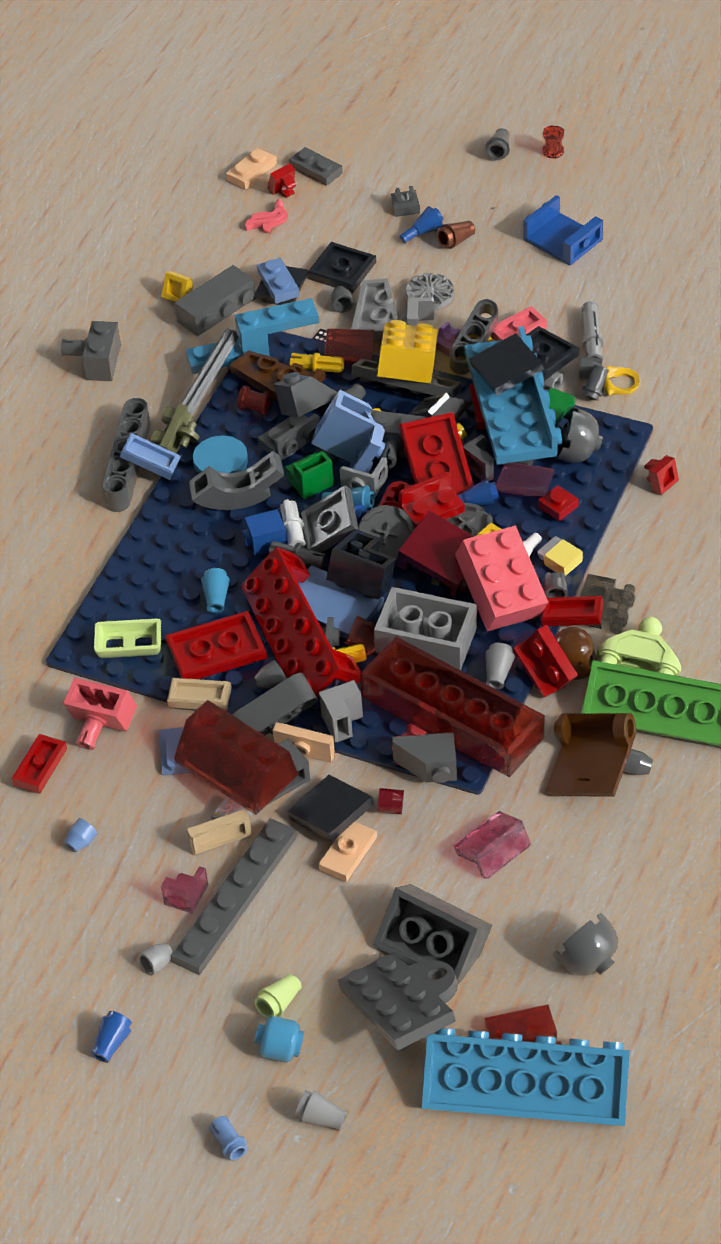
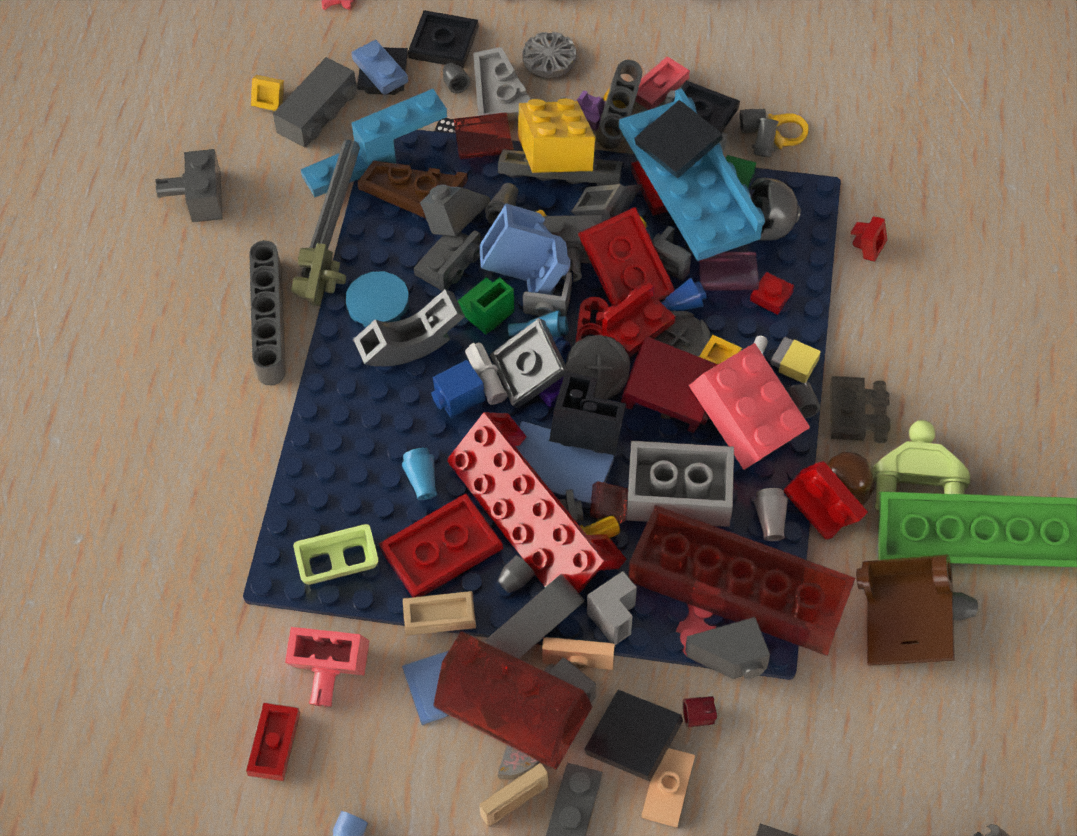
camera: 15 degrees left, 10 degrees up
(150, 456) = (297, 313): medium blue tile -> none
(254, 400) = (396, 221): clear red bush -> none
(308, 556) = (518, 411): dark grey axle -> none
(313, 362) = (455, 162): yellow axle -> none
(418, 309) = (544, 80): light grey bracket -> none
(494, 843) = (833, 744): clear pink bracket -> none
(573, 611) = (834, 428): red tile -> none
(592, 339) = (744, 86): light grey pin -> none

